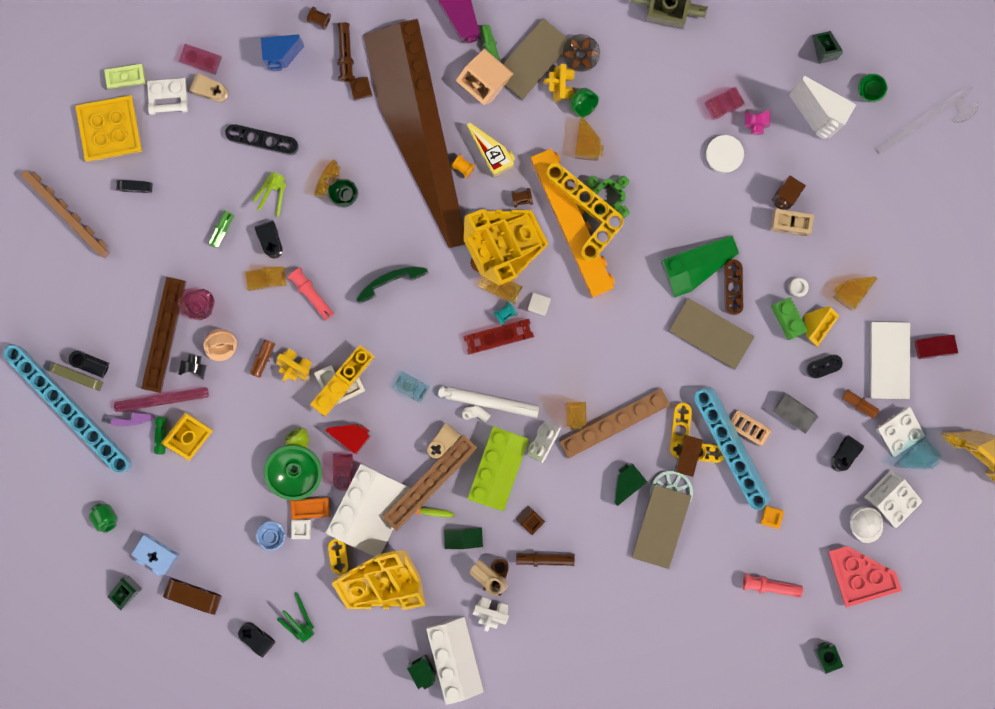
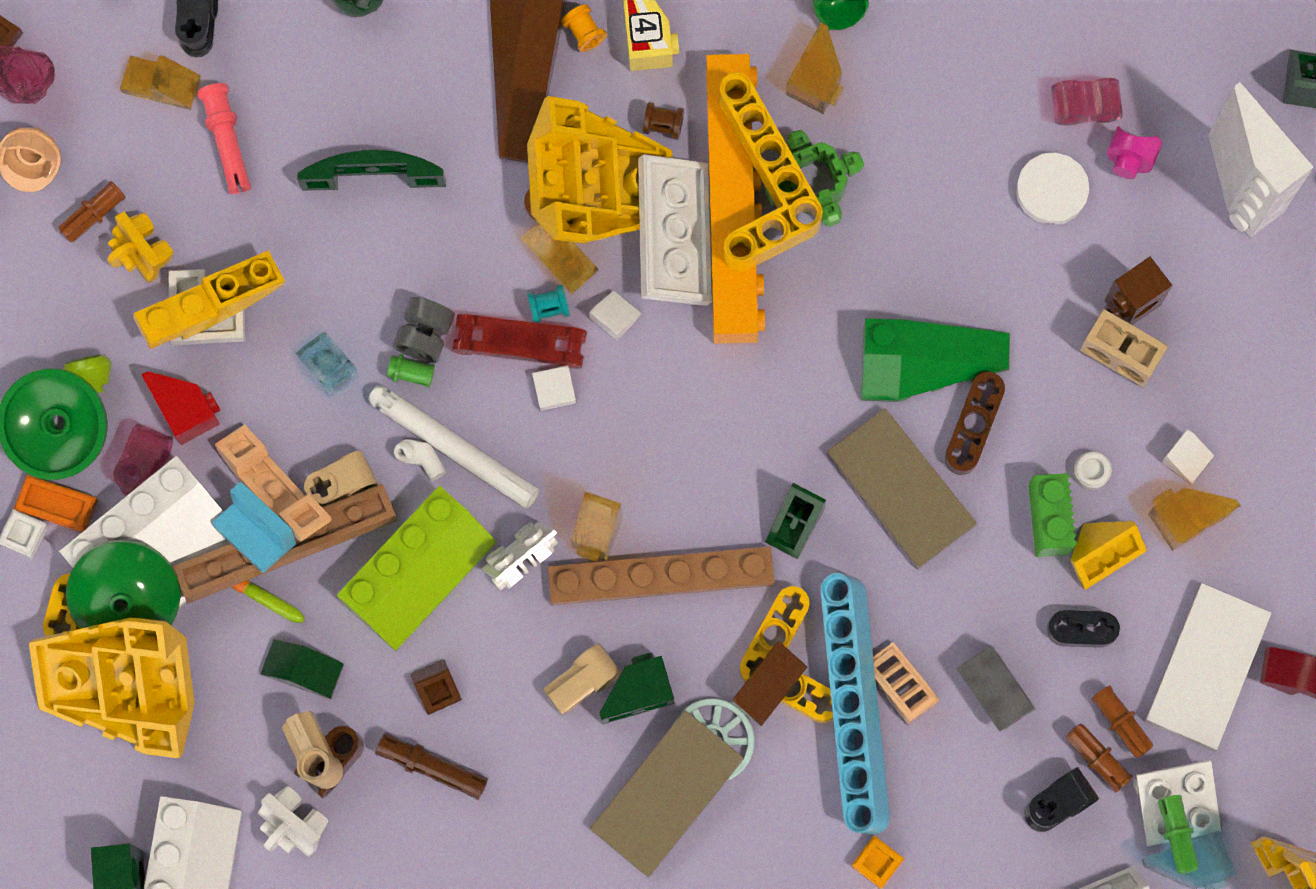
camera: 20 degrees right, 10 degrees down
(362, 532) = (123, 572): none -> green dish
(411, 458) = (257, 471): none -> light nougat slope
(413, 484) = (254, 529): none -> medium azure panel
(451, 344) = (428, 318): none -> dark grey wheel
(452, 373) = (410, 371): none -> bright green pin
(525, 352) = (554, 388): none -> white tile
(551, 251) = (675, 230): none -> white tile
(600, 486) = (590, 674): none -> tan piece
(668, 371) = (796, 520): none -> dark green slope
(841, 262) = (1188, 457): none -> white slope
(856, 425) = (1098, 757): none -> dark orange axle
(909, 449) = (1178, 833): none -> bright green axle

